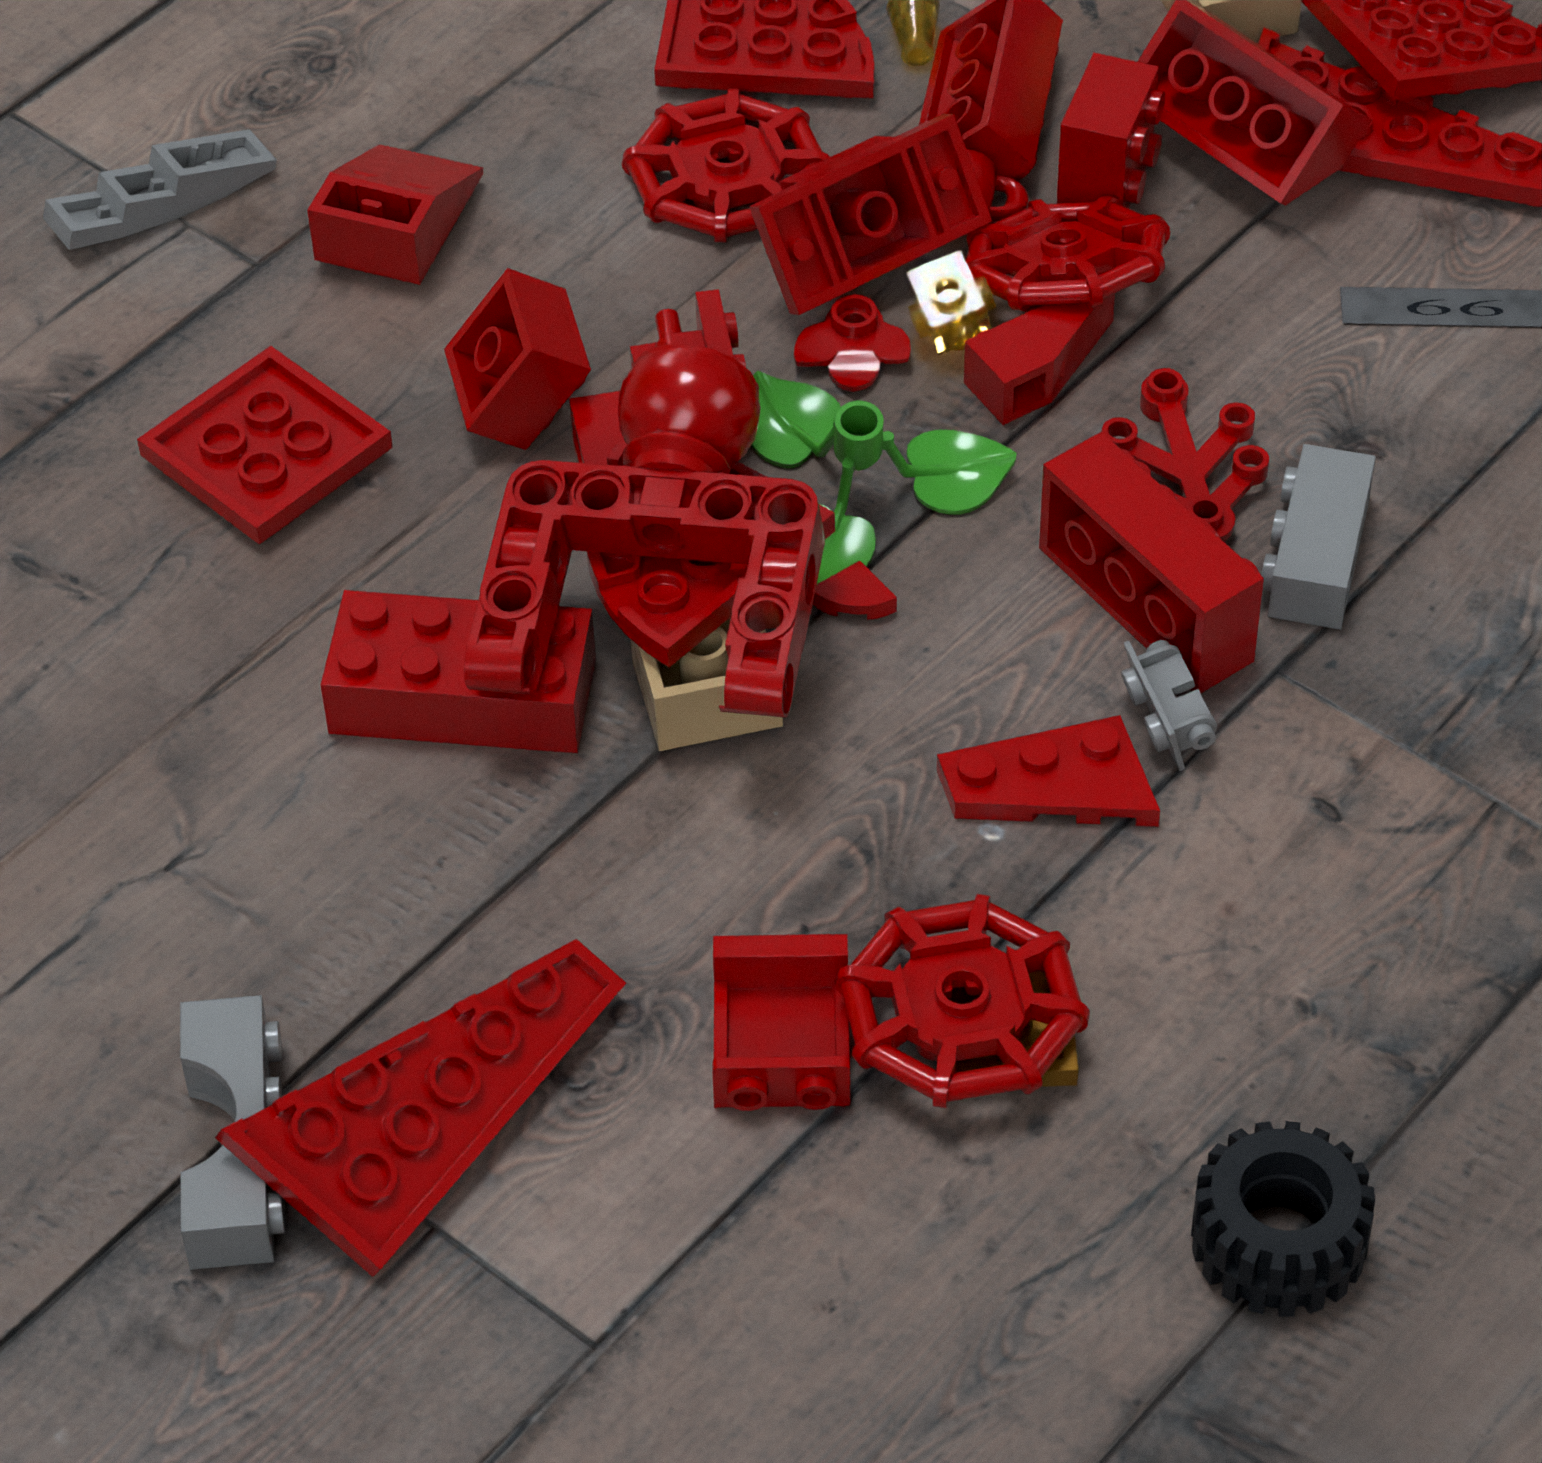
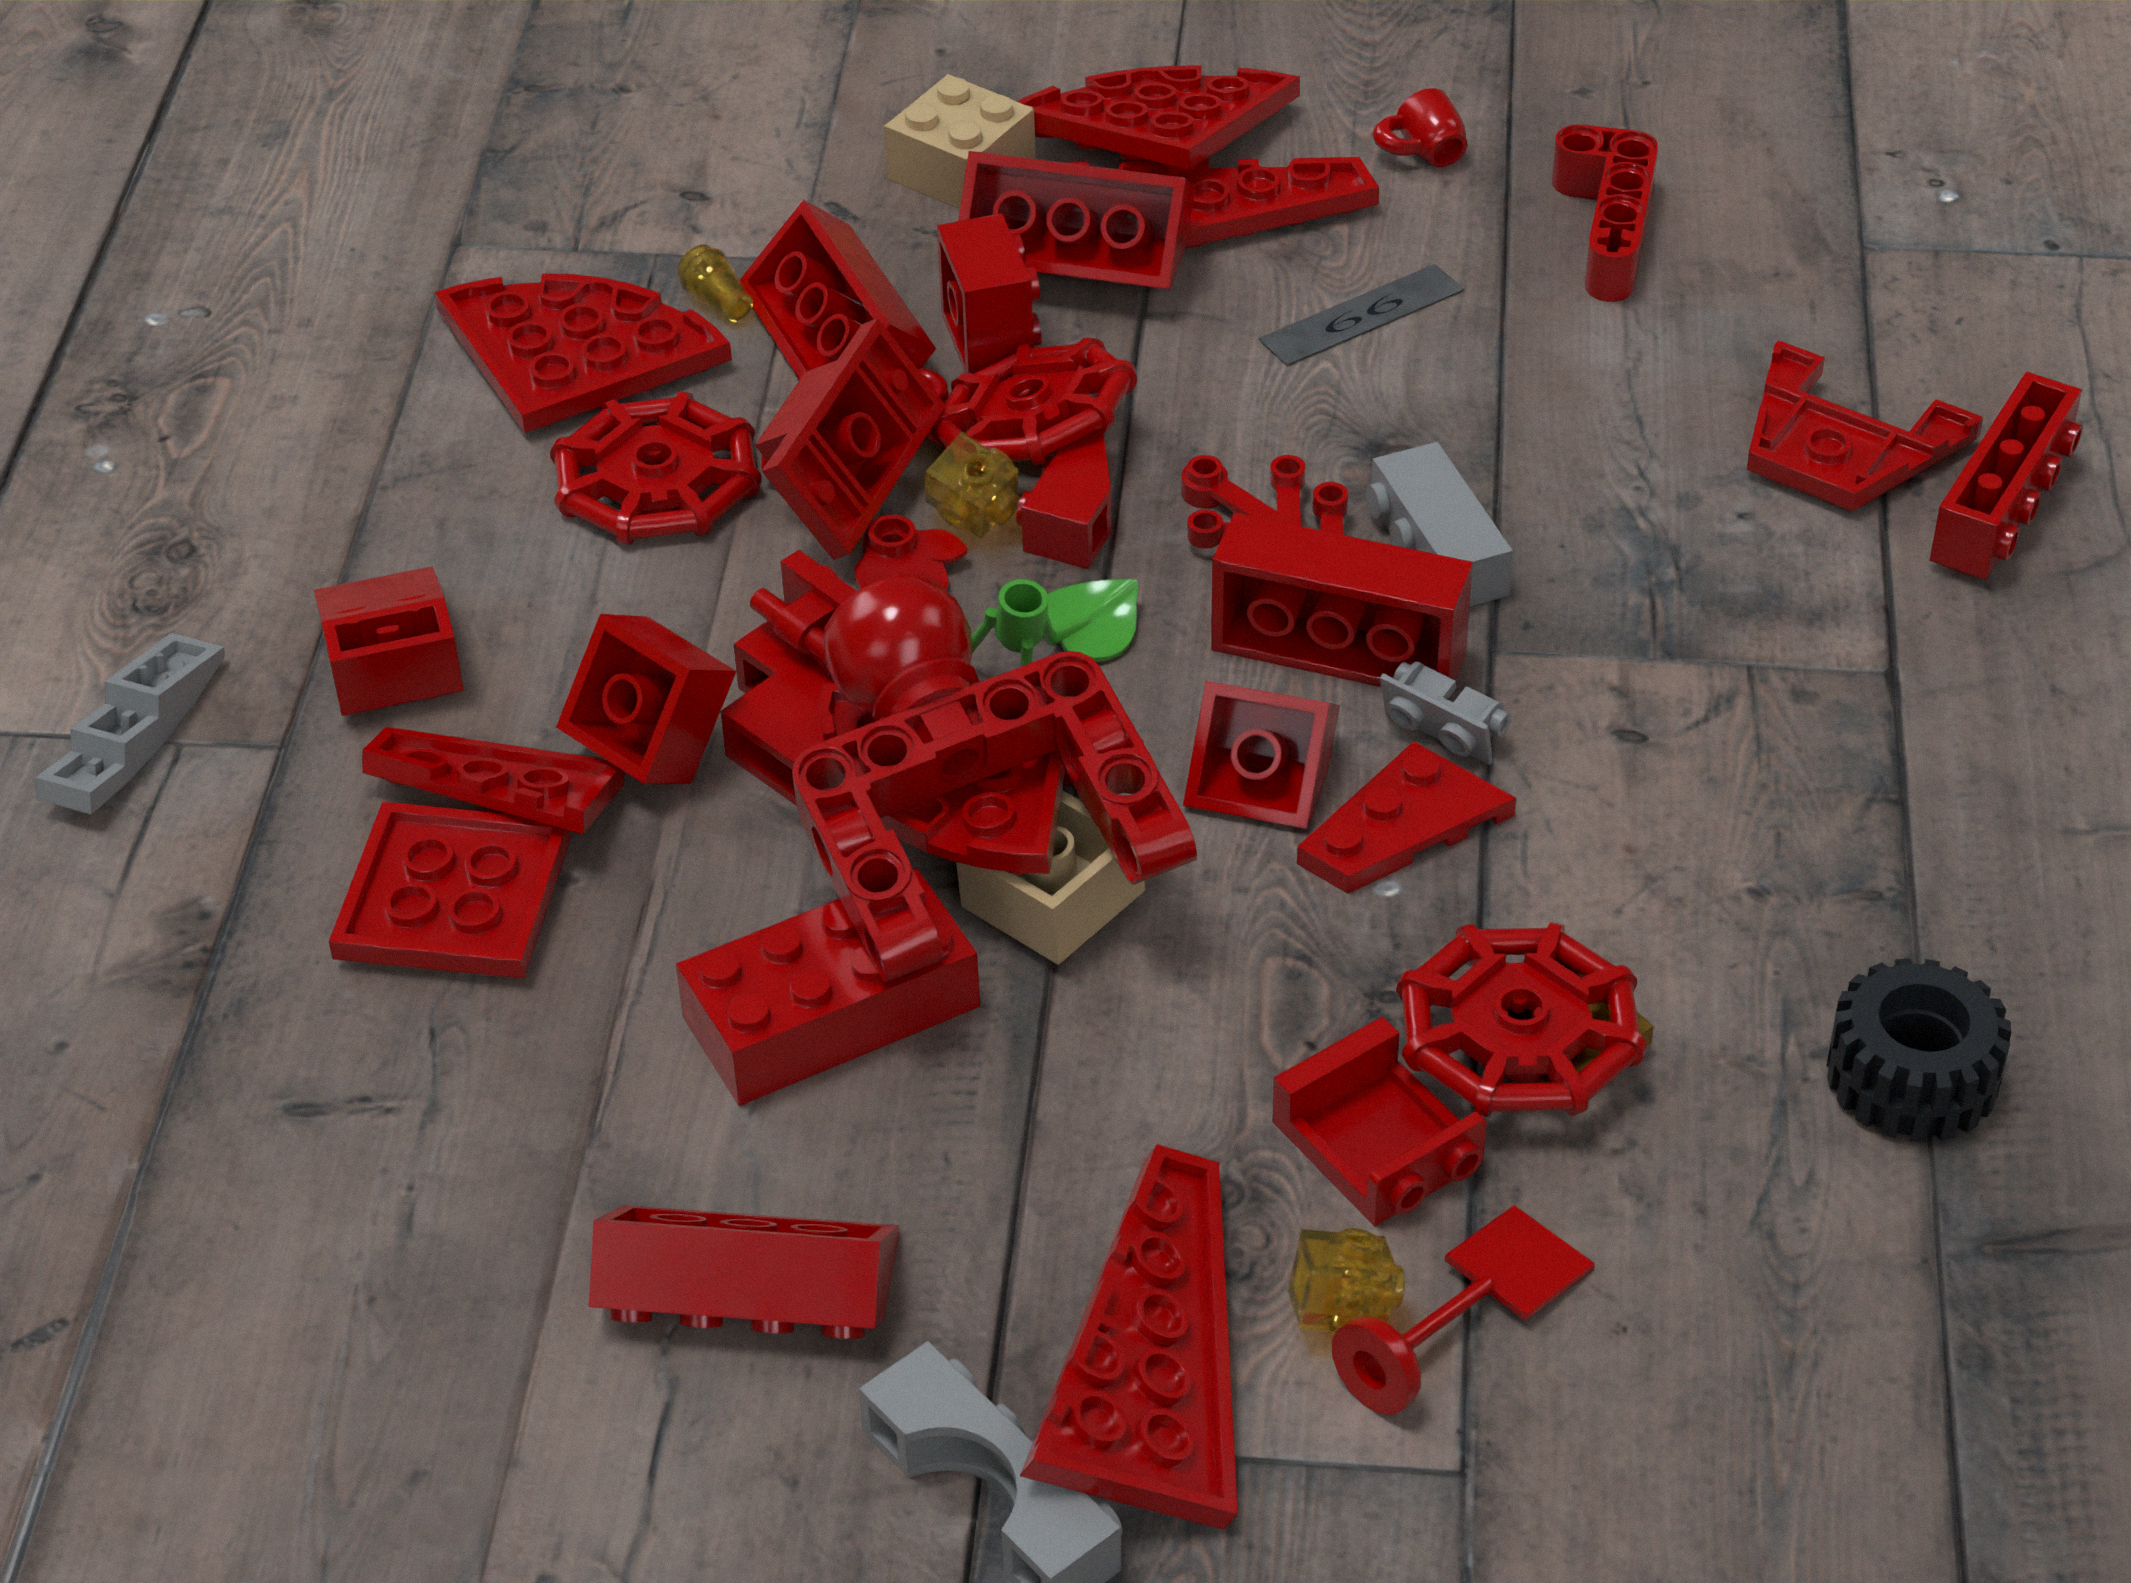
camera: 35 degrees left, 5 degrees down
(203, 861) = (742, 1269): none -> red slope
(373, 371) = (512, 779): none -> red wing
(620, 1135) = (1343, 1278): none -> clear yellow brick
(783, 1200) = (1507, 1258): none -> red piece
(979, 657) = (1260, 754): none -> red slope

